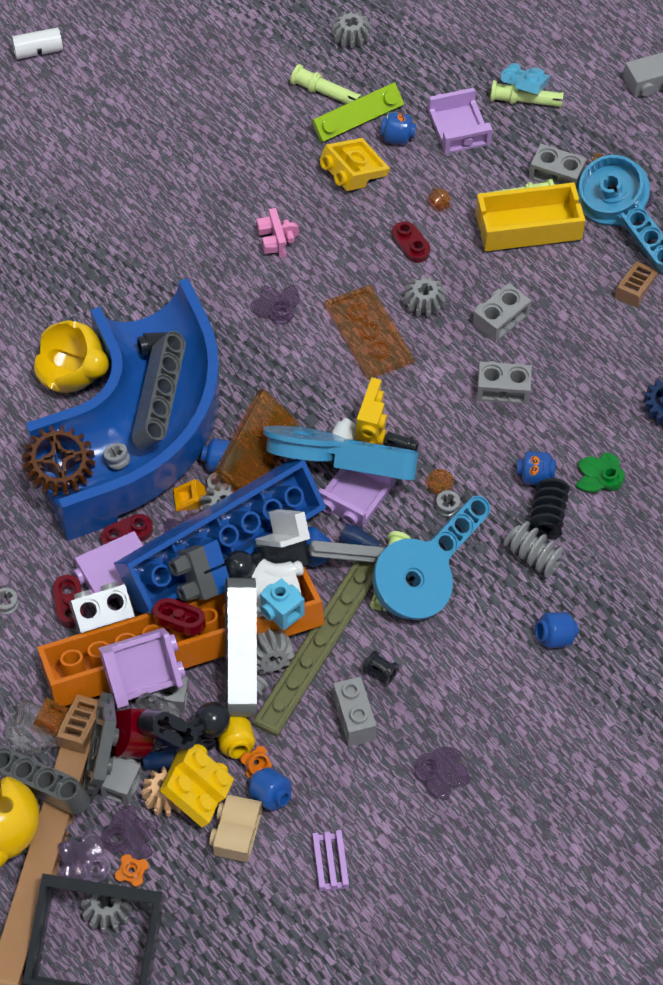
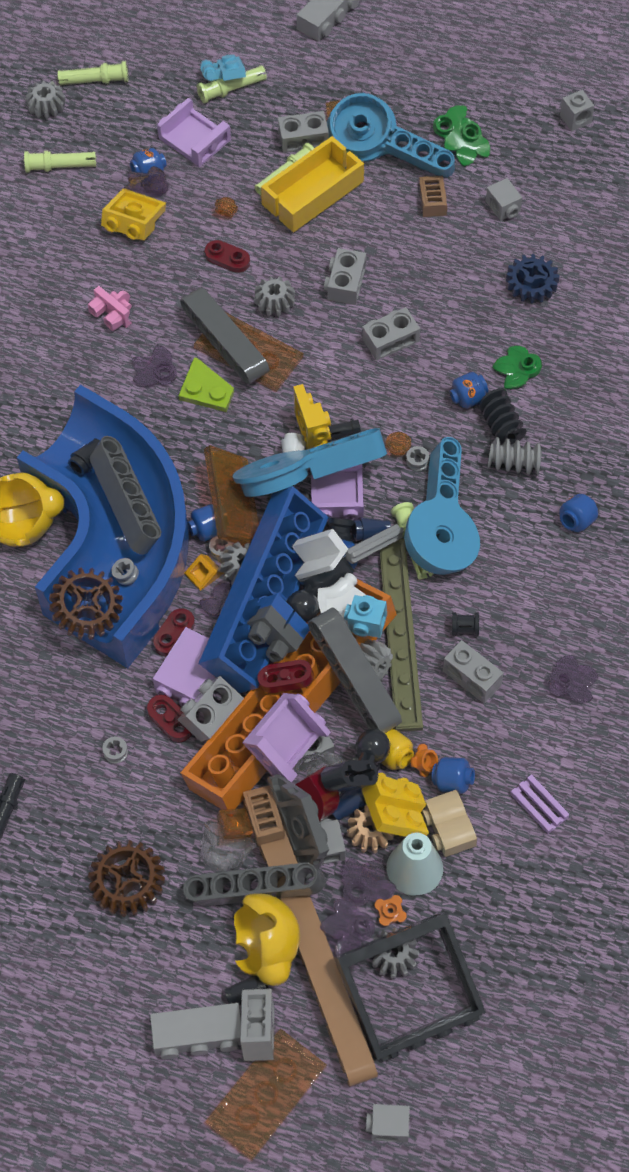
camera: 30 degrees left, 5 degrees up
(180, 844) = (415, 865): none -> light aqua cone
(307, 343) = (206, 388): none -> lime wing
(330, 524) = (341, 527): none -> black wheel
(353, 306) = (224, 335): none -> dark grey beam
(357, 112) = (103, 168): lime plate -> none
(386, 143) = (150, 182): none -> clear purple plate
(418, 32) = (104, 73): none -> yellowish green pin

